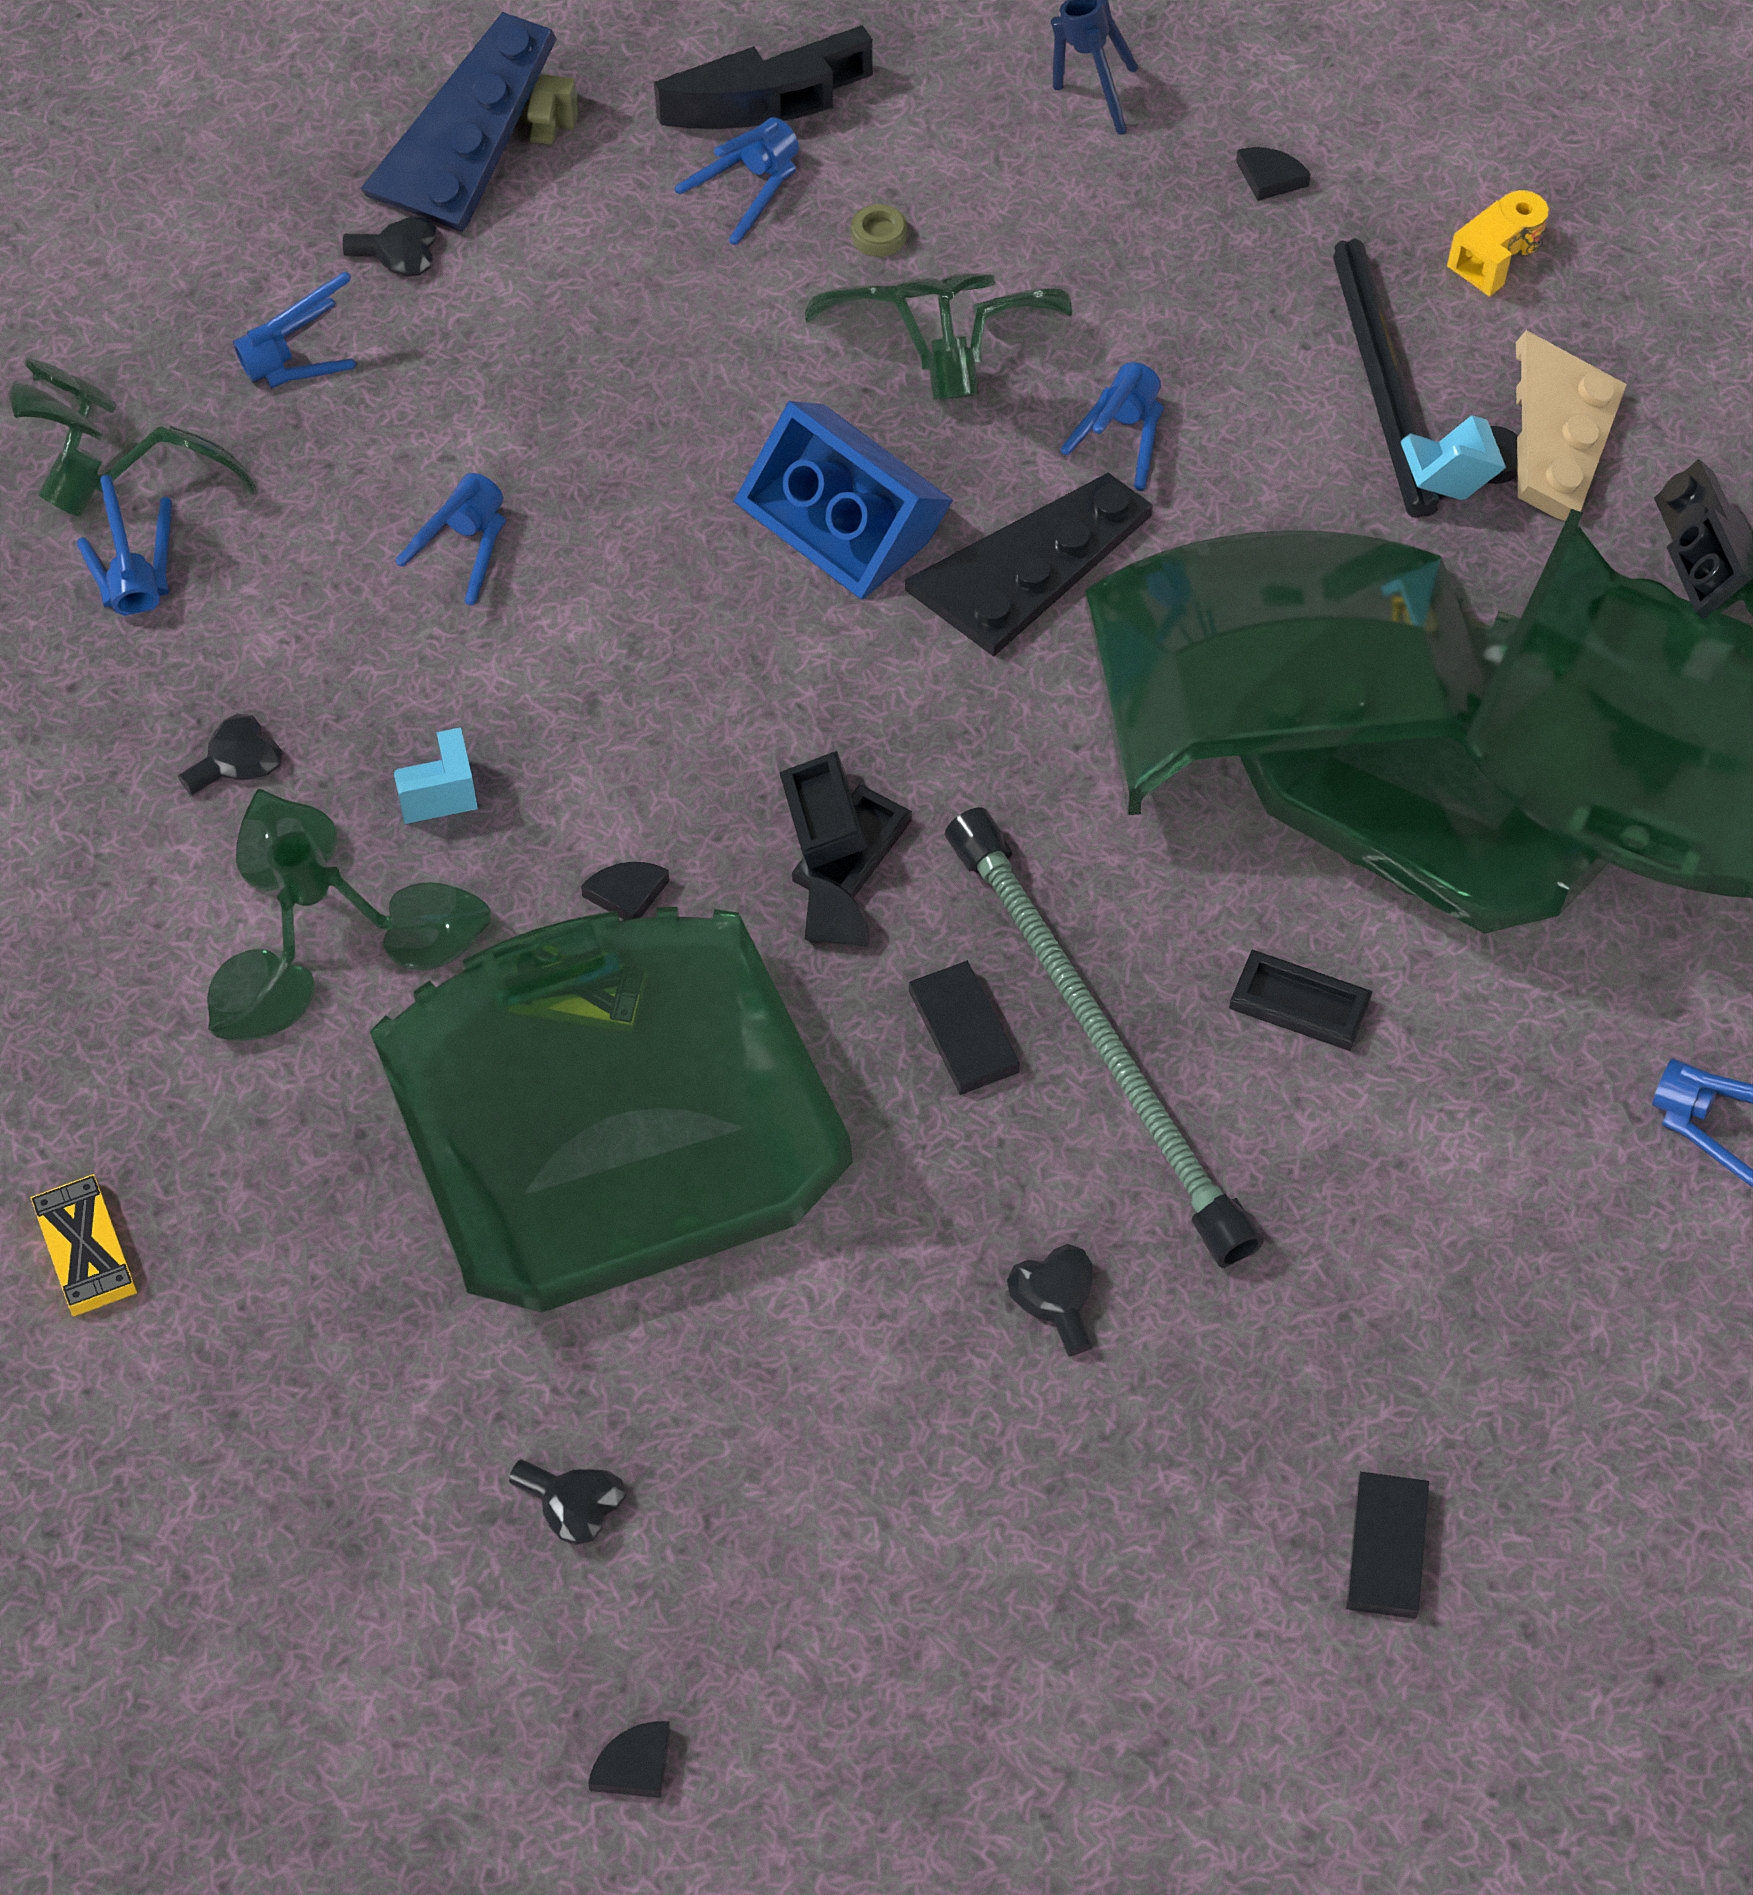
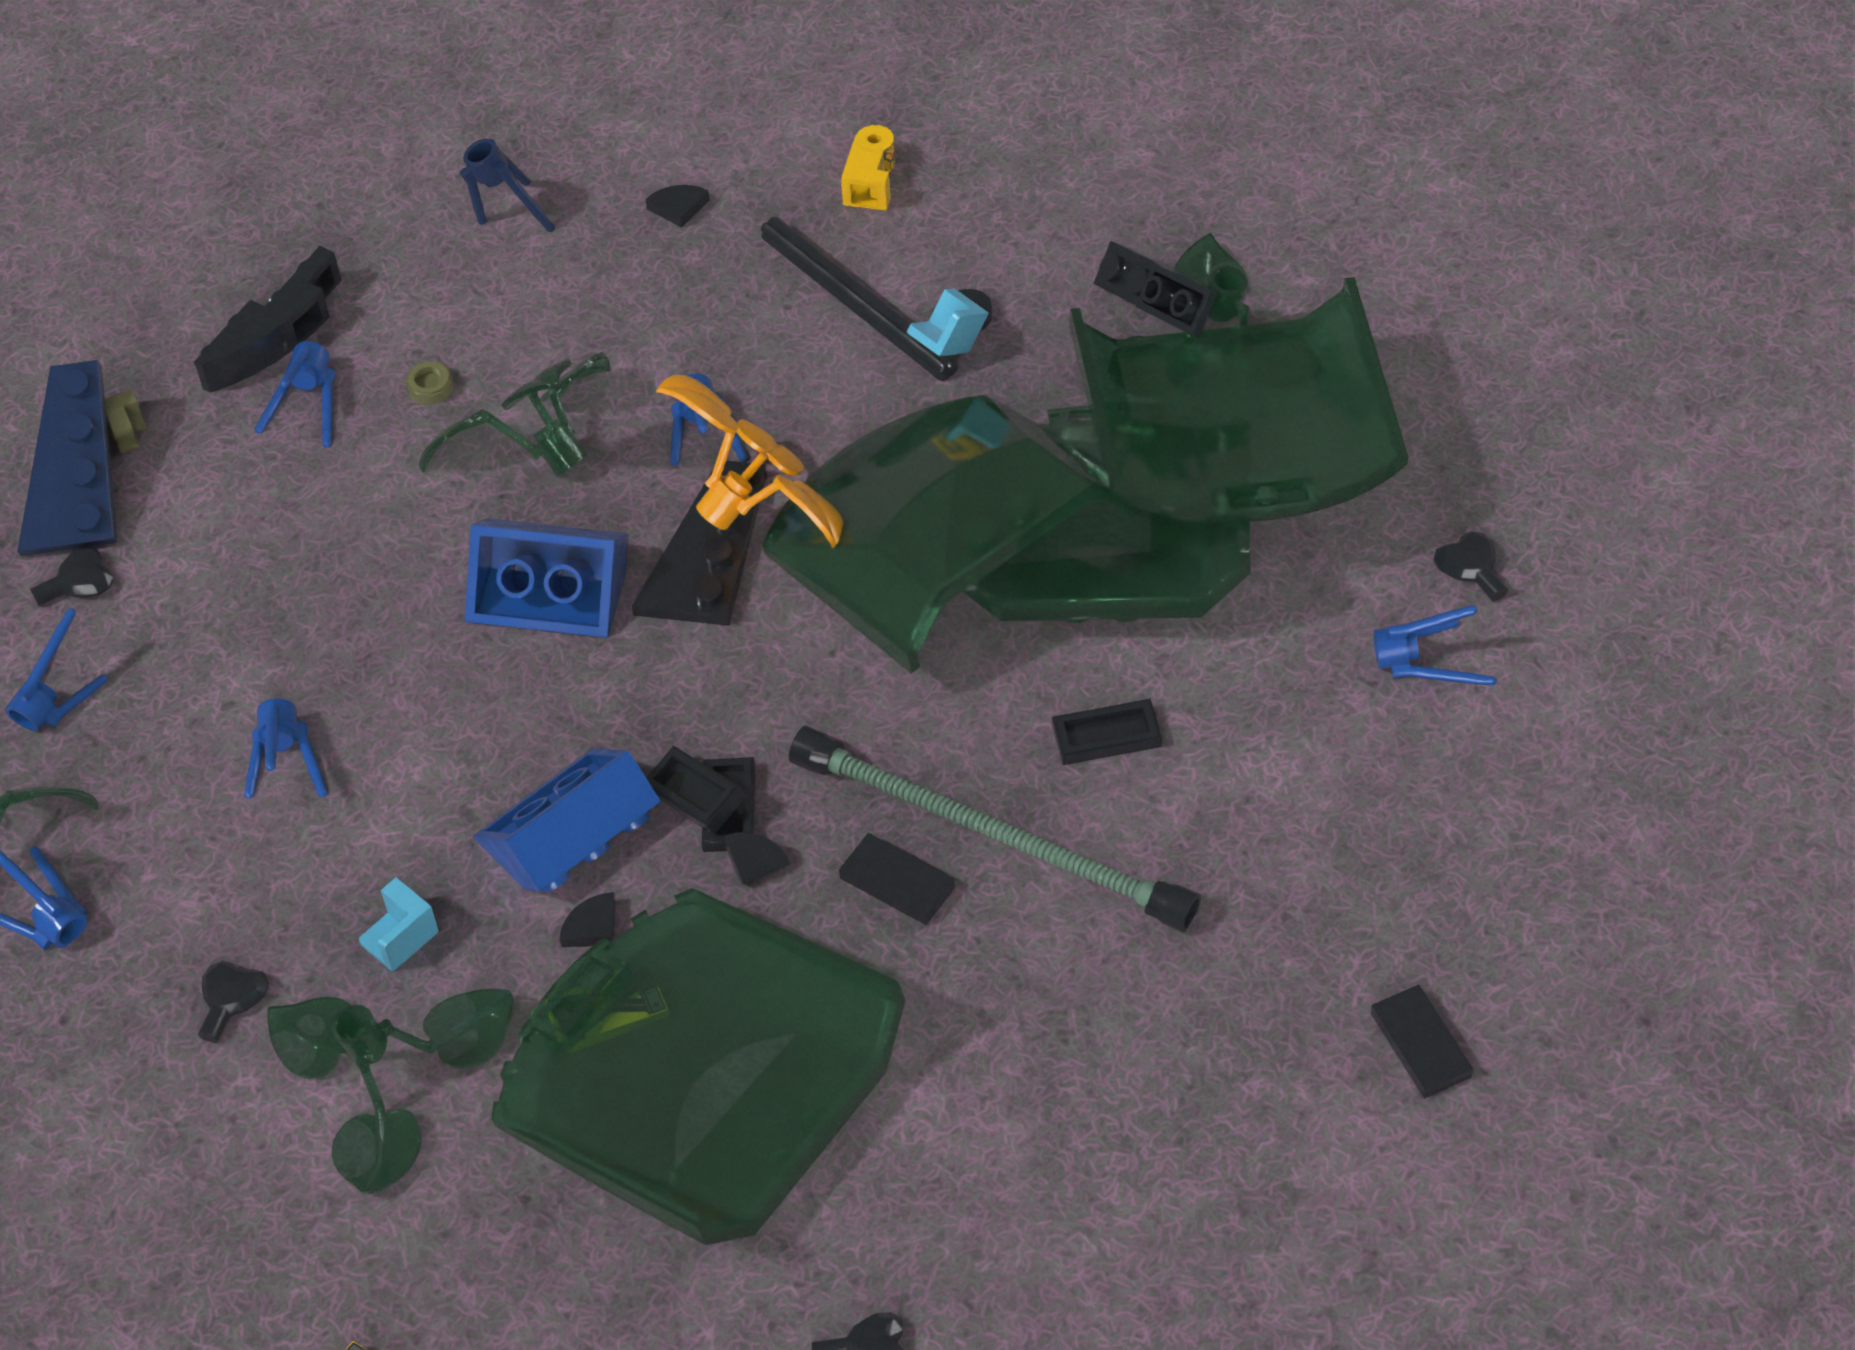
camera: 30 degrees left, 5 degrees down
(679, 768) = (570, 819): none -> blue slope
(1056, 1292) = (1090, 1012): black rock -> none
(1078, 513) = (730, 493): none -> light orange plant
(1564, 424) = (1003, 265): tan wing -> none

